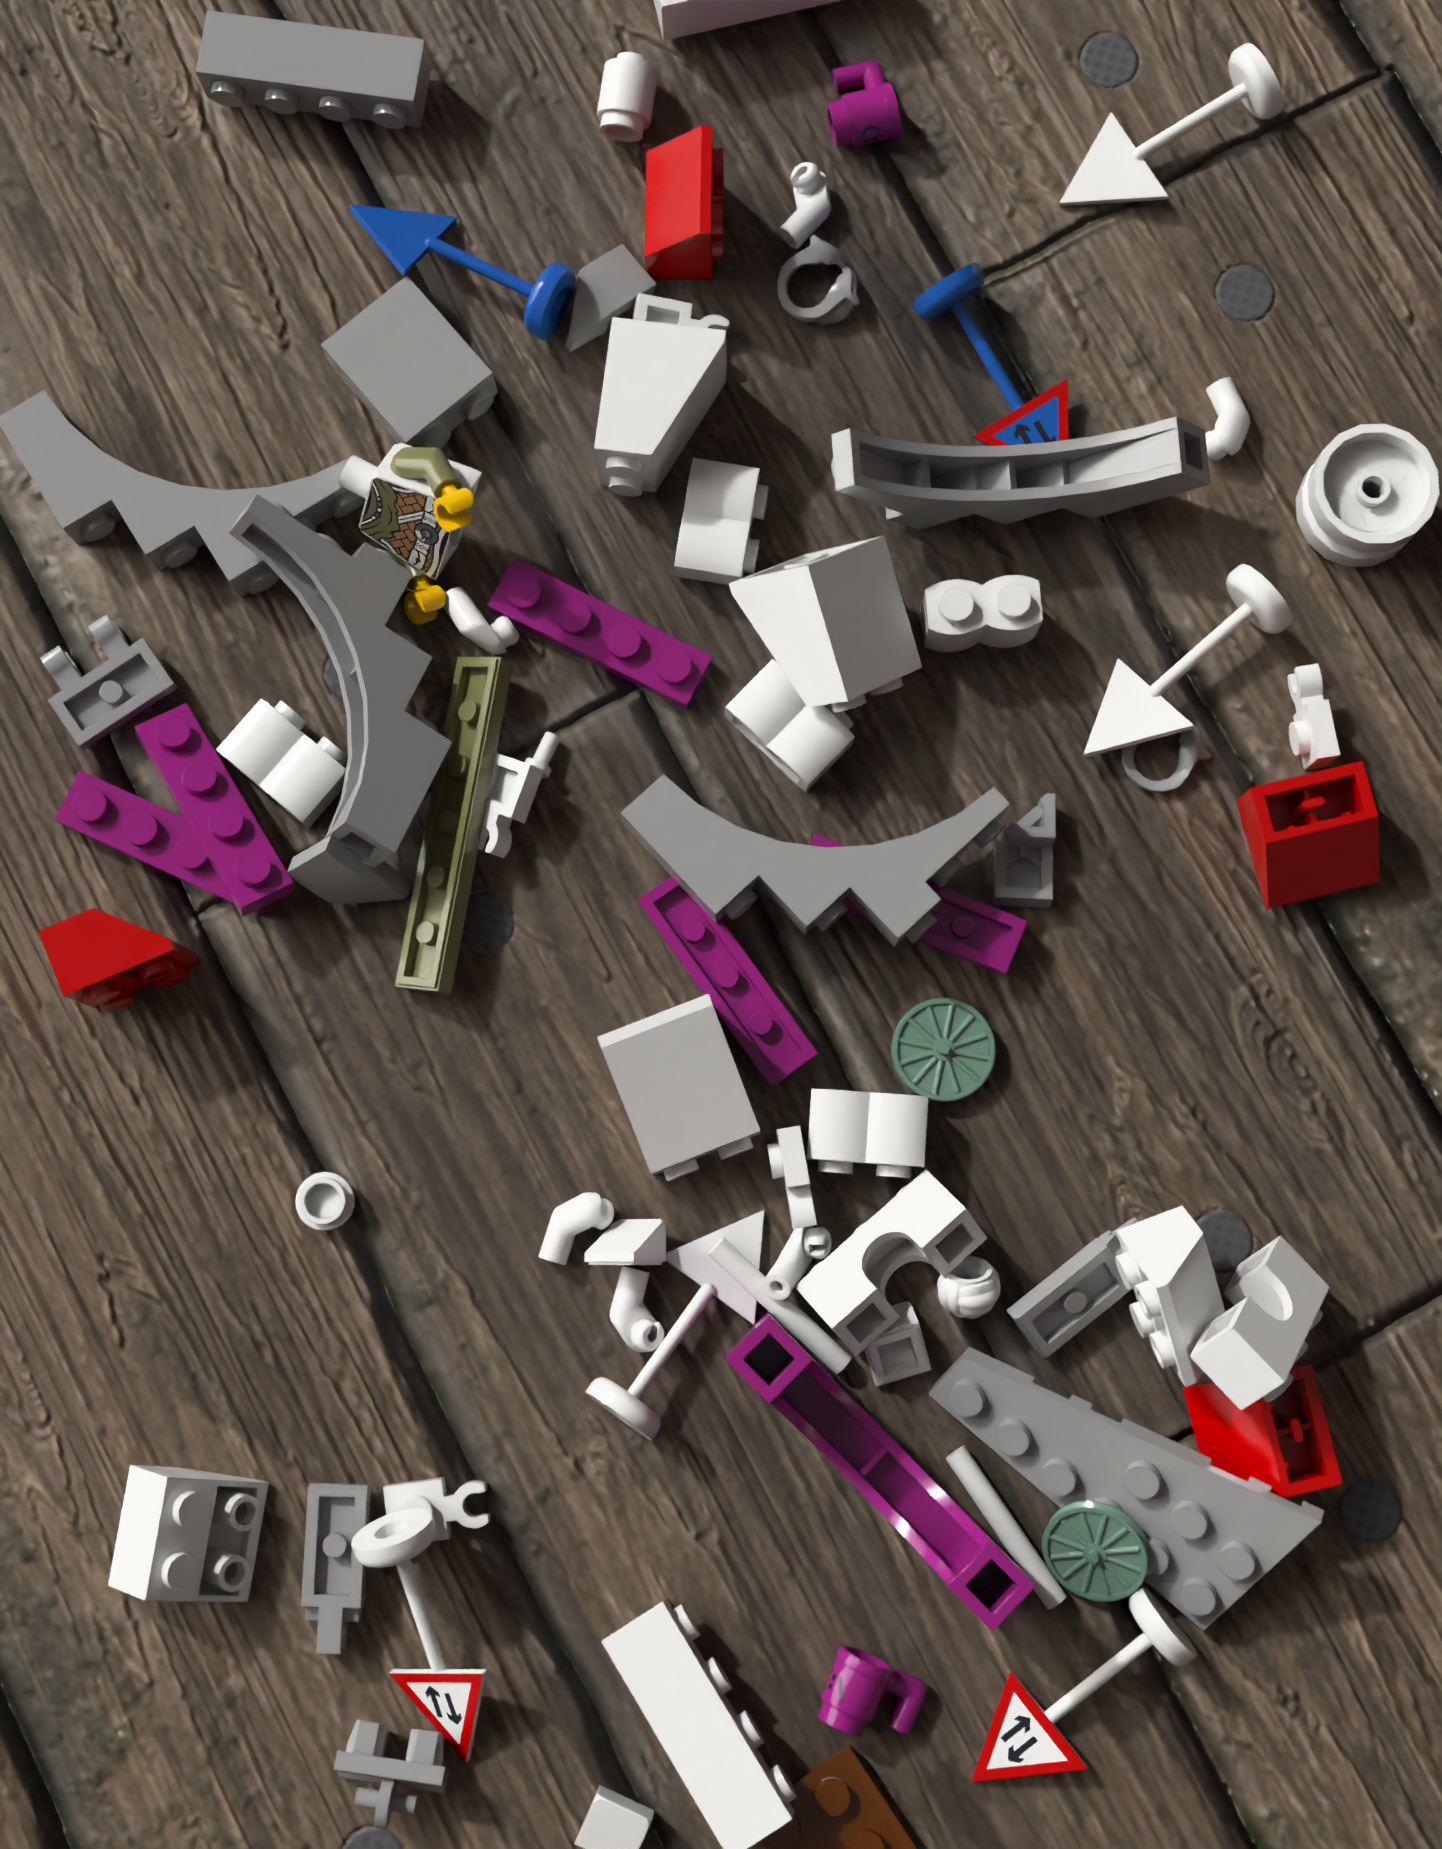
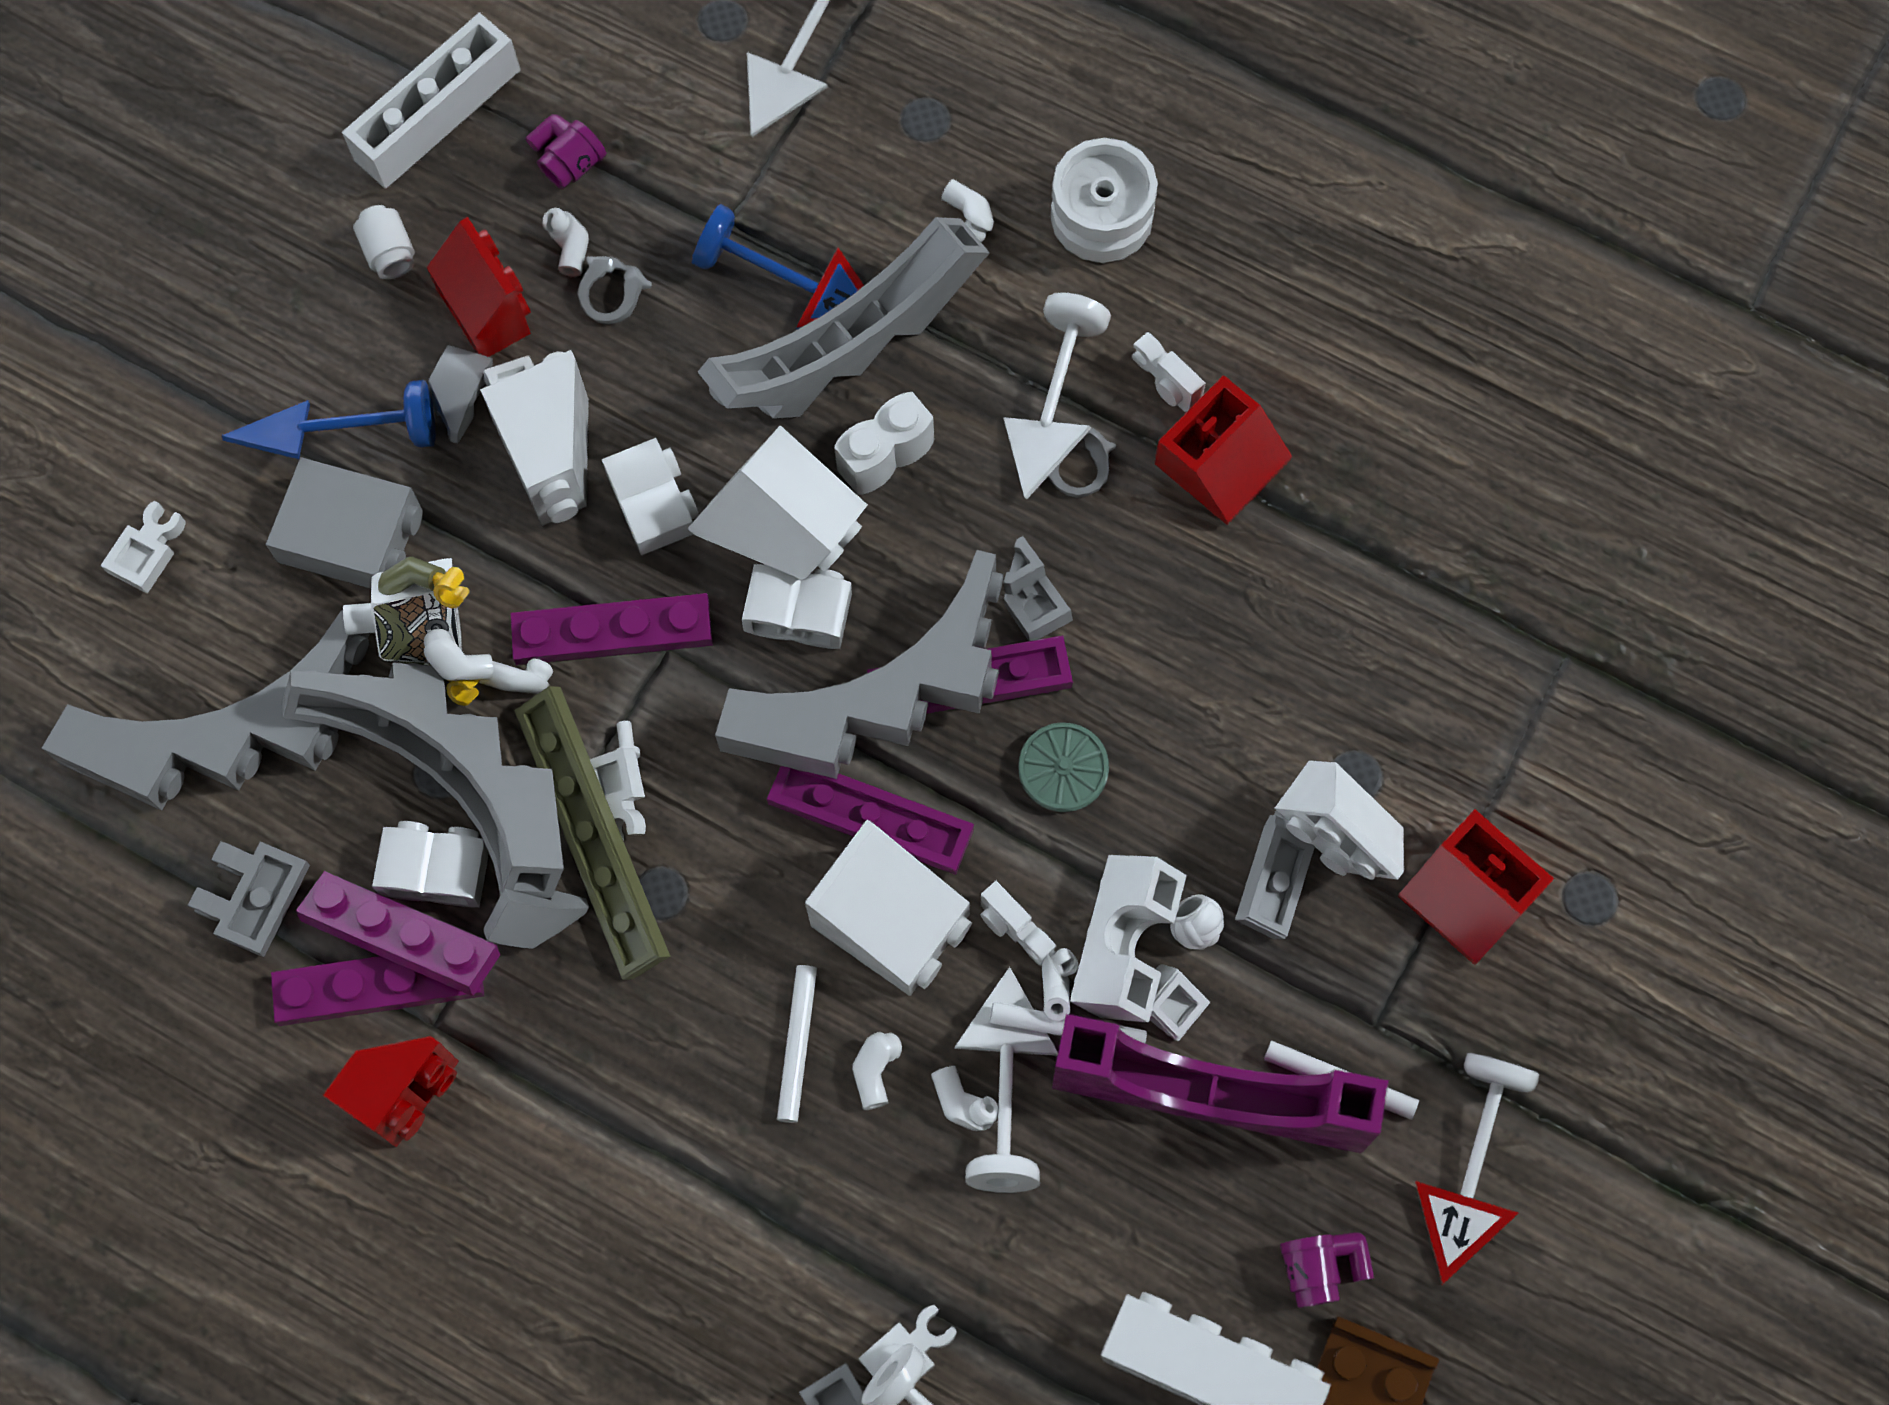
camera: 35 degrees left, 10 degrees down
(205, 278) = (142, 554): none -> white plate
(314, 69) = (132, 356): light grey brick -> none
(325, 1201) = (672, 1173): white plate -> none
(421, 575) = (451, 661): none -> white arm
(517, 1153) = (797, 1044): none -> white bar
(630, 1243) = (928, 1052): white slope -> none
(867, 1130) = (1047, 856): white brick -> none
(1096, 1551) = (1417, 1049): sand green wheel -> none
(1202, 1525) = (1427, 986): light grey wing -> none
(1265, 1331) = (1422, 803): white arch -> none

